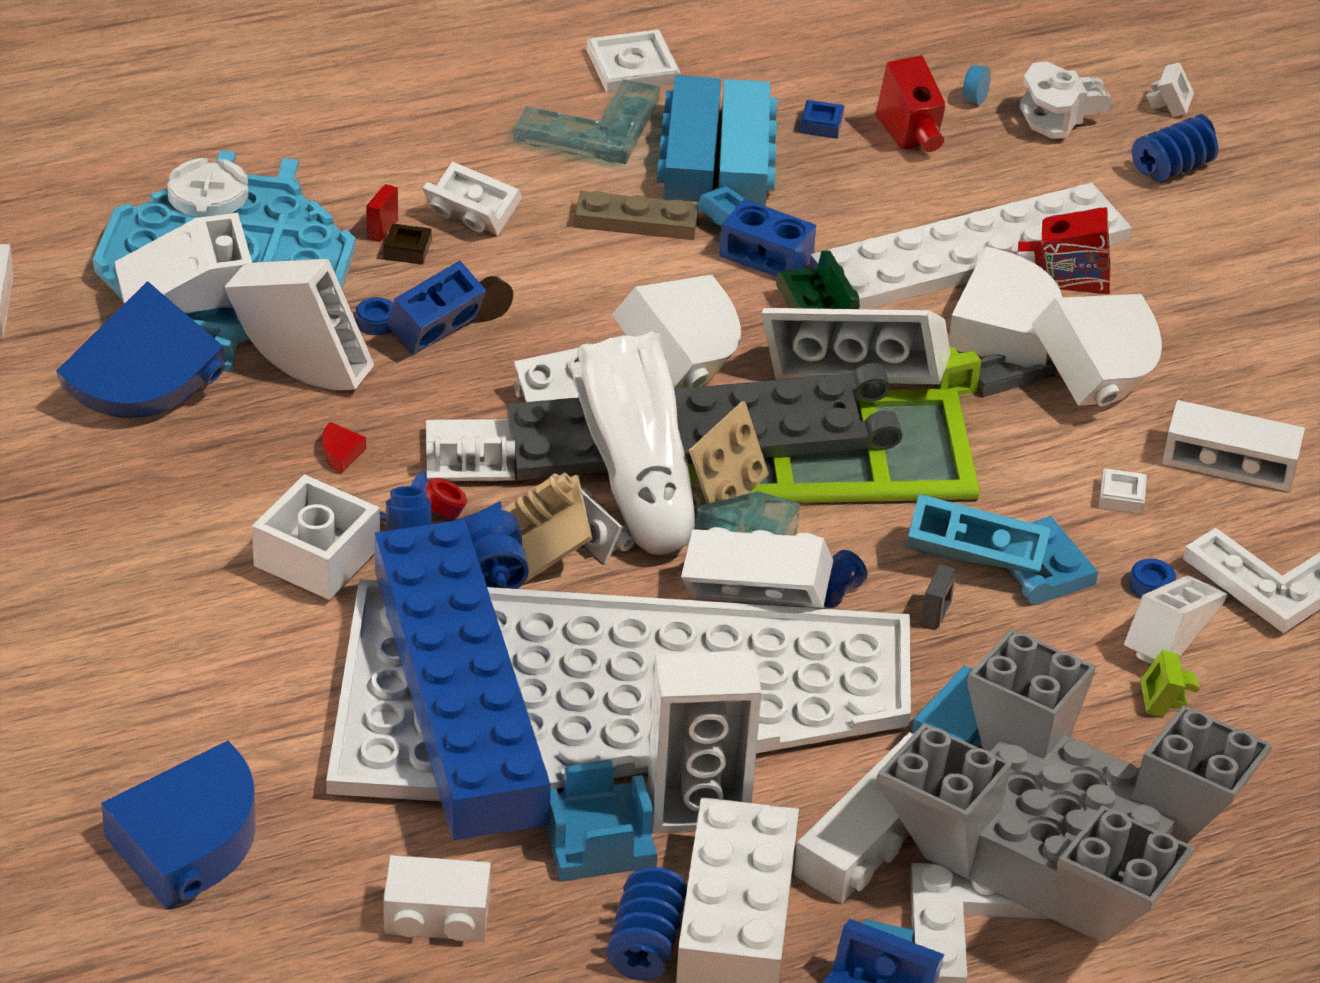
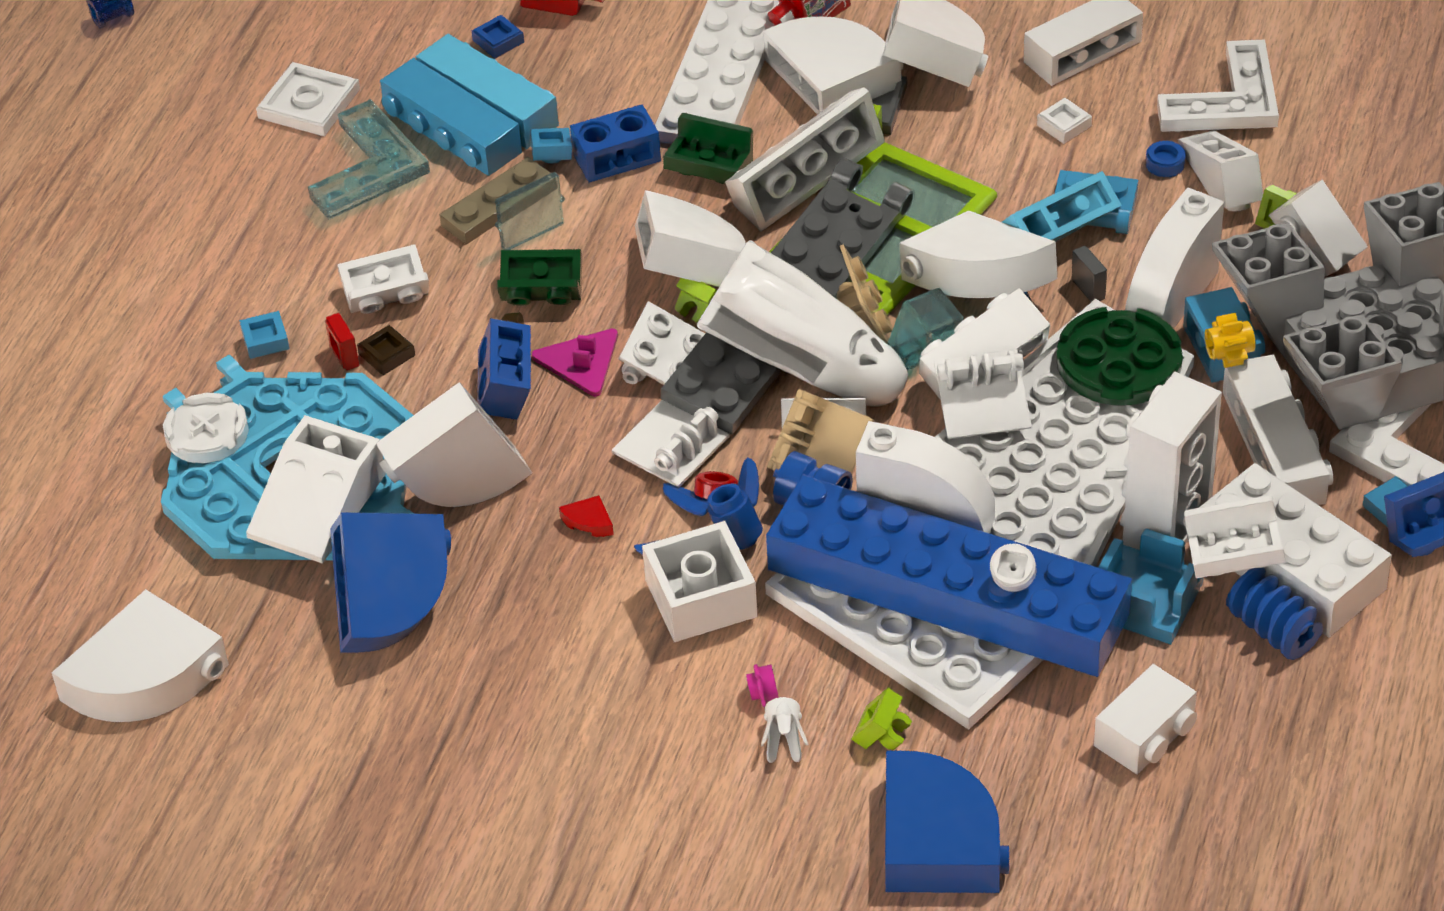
camera: 45 degrees left, 5 degrees up
(217, 674) = (783, 718): none -> white piece
(253, 639) = (762, 684): none -> dark pink plate
(276, 725) = (878, 721): none -> lime tile
(349, 171) = (264, 334): none -> dark azure plate
(467, 691) = (1013, 567): none -> white tile
(506, 346) = (581, 360): none -> dark pink piece
(528, 599) = (923, 476): none -> white brick
(571, 279) = (540, 276): none -> dark green bracket
(626, 230) = (529, 211): none -> clear light blue piece
(671, 829) = (1234, 536): none -> white bracket
(696, 590) = (982, 394): none -> white hinge
(850, 662) = (1118, 355): none -> dark green tile
(858, 508) = (977, 258): none -> white brick
(922, 706) = (1230, 340): none -> yellow gear
(976, 619) = (1178, 257): none -> white brick
(1150, 700) = (1321, 226): none -> white brick

